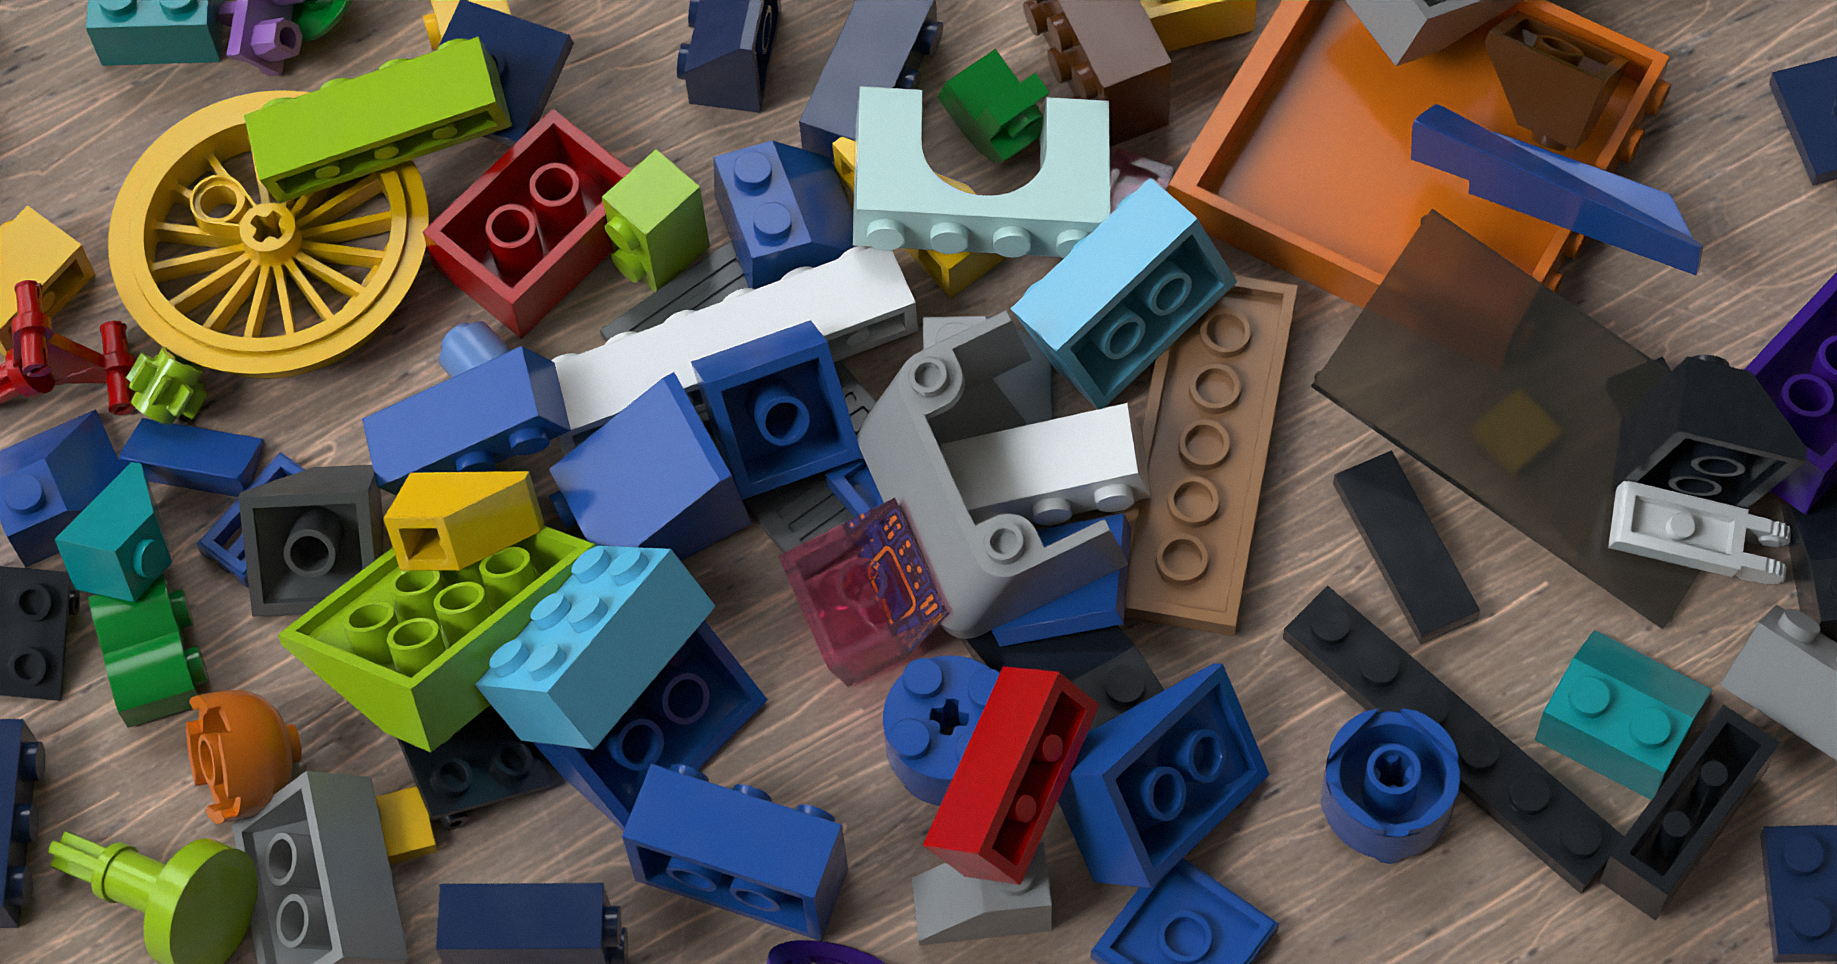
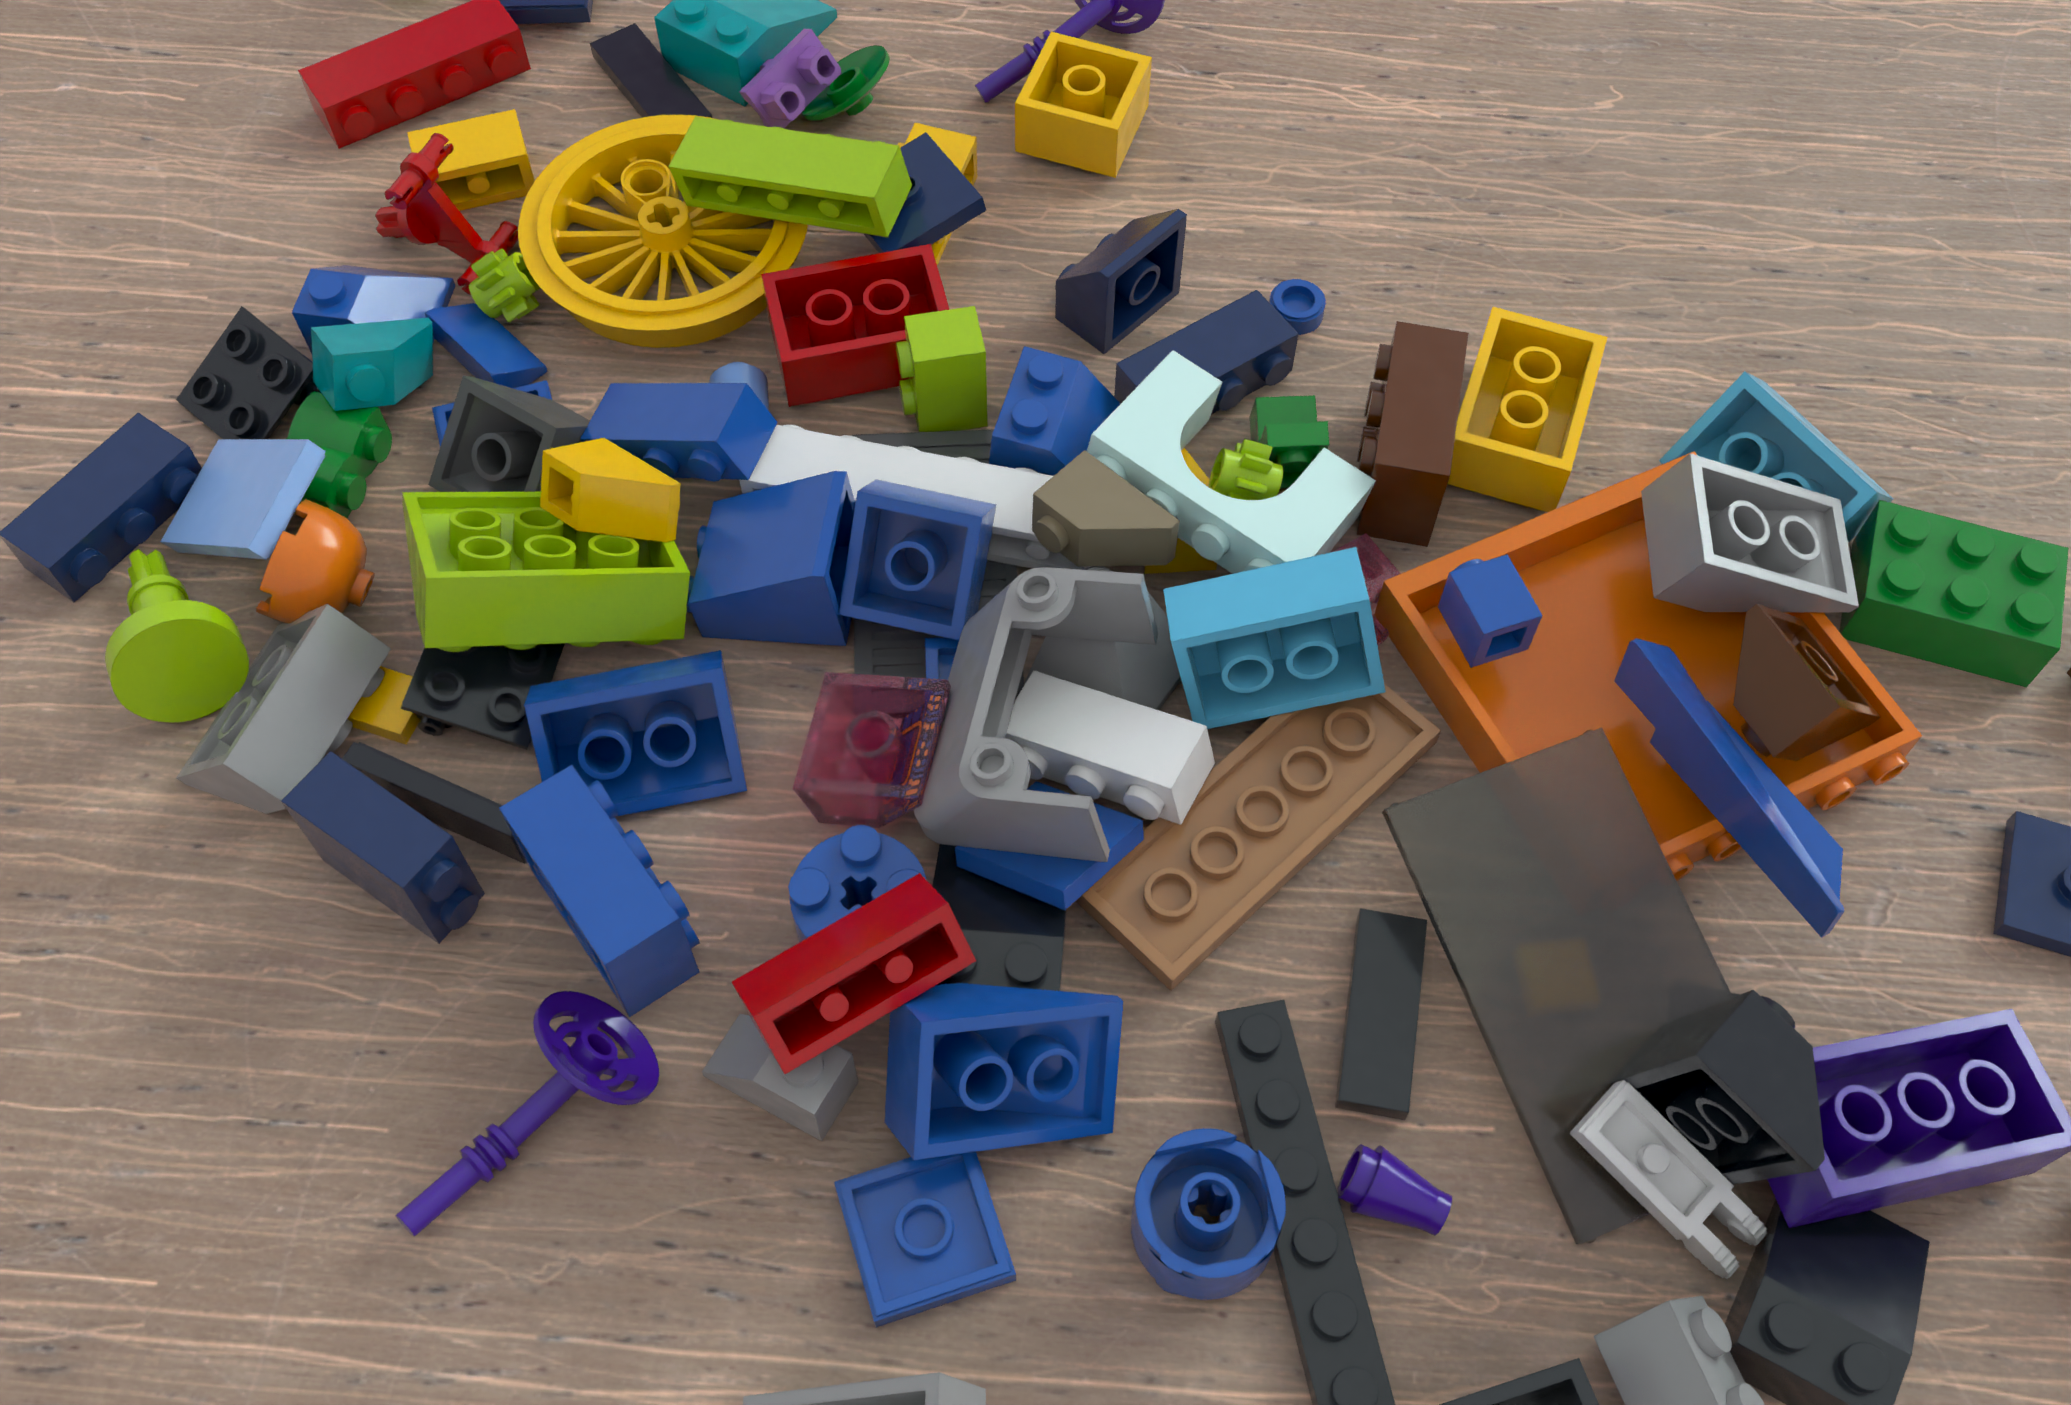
camera: 30 degrees right, 5 degrees down
(108, 92) = (645, 75): none -> black tile
(125, 732) = (244, 497): none -> light blue tile
(579, 862) = (437, 799): none -> black tile
(594, 645) = (614, 643): medium azure brick -> none
(910, 277) = (1101, 518): none -> dark tan slope
(996, 162) = (1246, 472): none -> lime gear
(1274, 159) = (1489, 610): none -> blue brick
(1504, 677) = (1391, 1191): none -> dark purple cone
(1621, 714) = (1480, 1298): teal slope -> none

